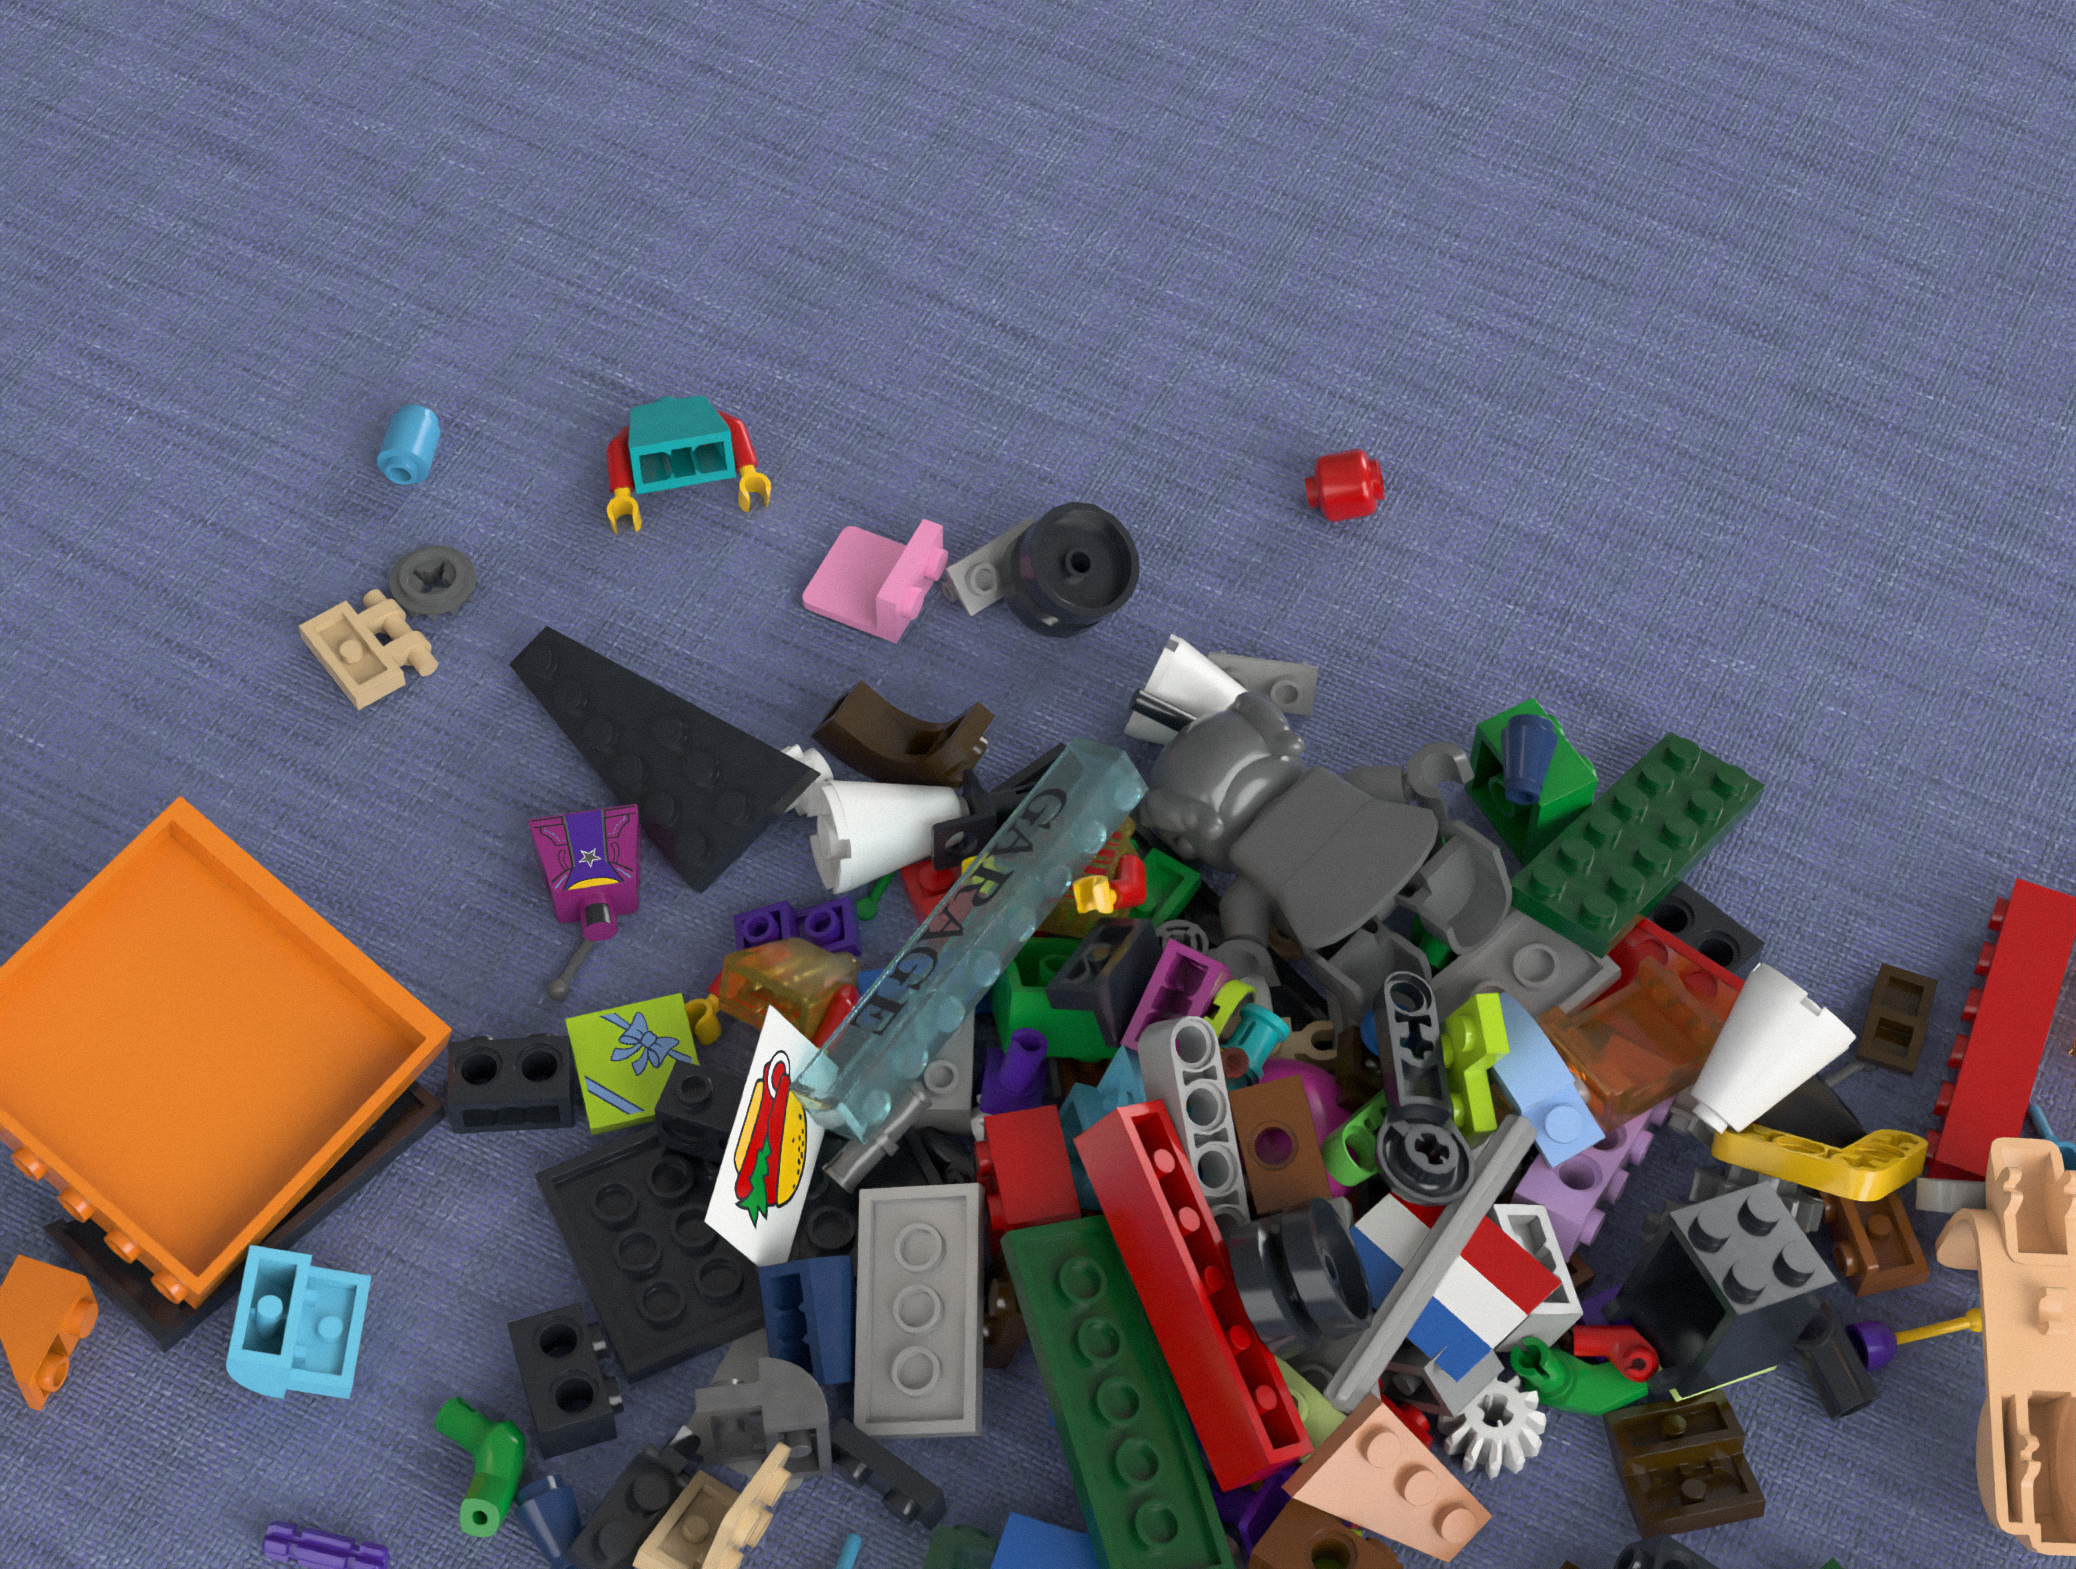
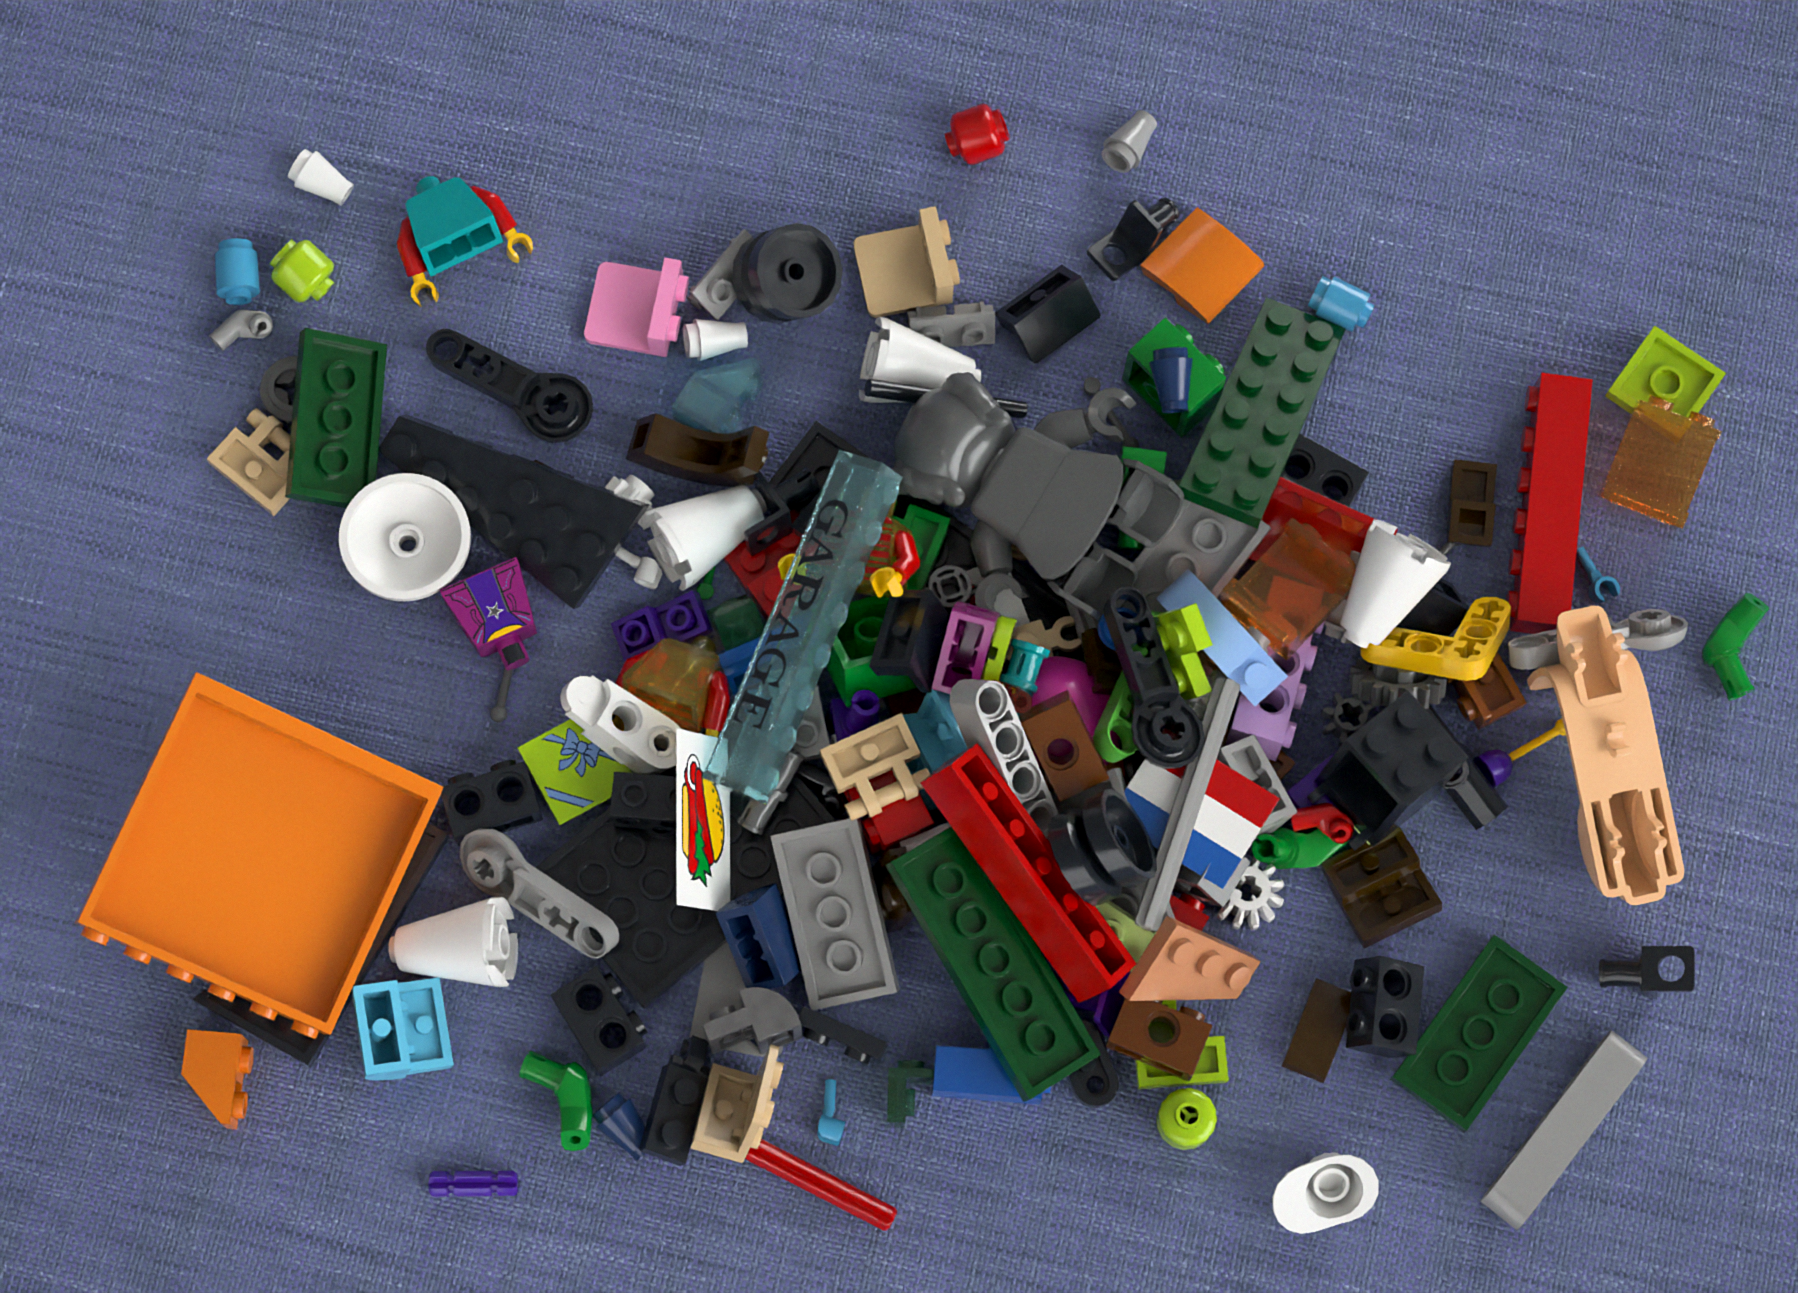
camera: 15 degrees left, 20 degrees up
(395, 503) = (244, 325): none -> light grey arm
(414, 1238) = (460, 944): none -> white cone
(468, 617) = (335, 417): none -> dark green plate
(486, 459) = (302, 271): none -> lime head
(498, 1169) = (501, 871): none -> light grey beam
(500, 734) = (397, 511): none -> white dish
(541, 373) = (316, 175): none -> white cone
(679, 981) = (591, 706): none -> white piece
(702, 633) = (518, 387): none -> black beam
(798, 865) = (648, 571): none -> white hand
(887, 932) = (736, 621): none -> clear green bracket
(946, 684) = (717, 394): none -> clear light blue slope
(958, 631) = (712, 338): none -> white cone
(1019, 1103) = (870, 754): none -> tan plate
(1225, 604) = (907, 266): none -> tan bracket
(1390, 694) = (1049, 313): none -> black panel
(1516, 630) = (1134, 236): none -> black bracket
(1530, 534) = (1127, 144): none -> light grey cone
(1595, 681) = (1202, 265): none -> orange slope
(1766, 755) = (1341, 303): none -> dark azure brick

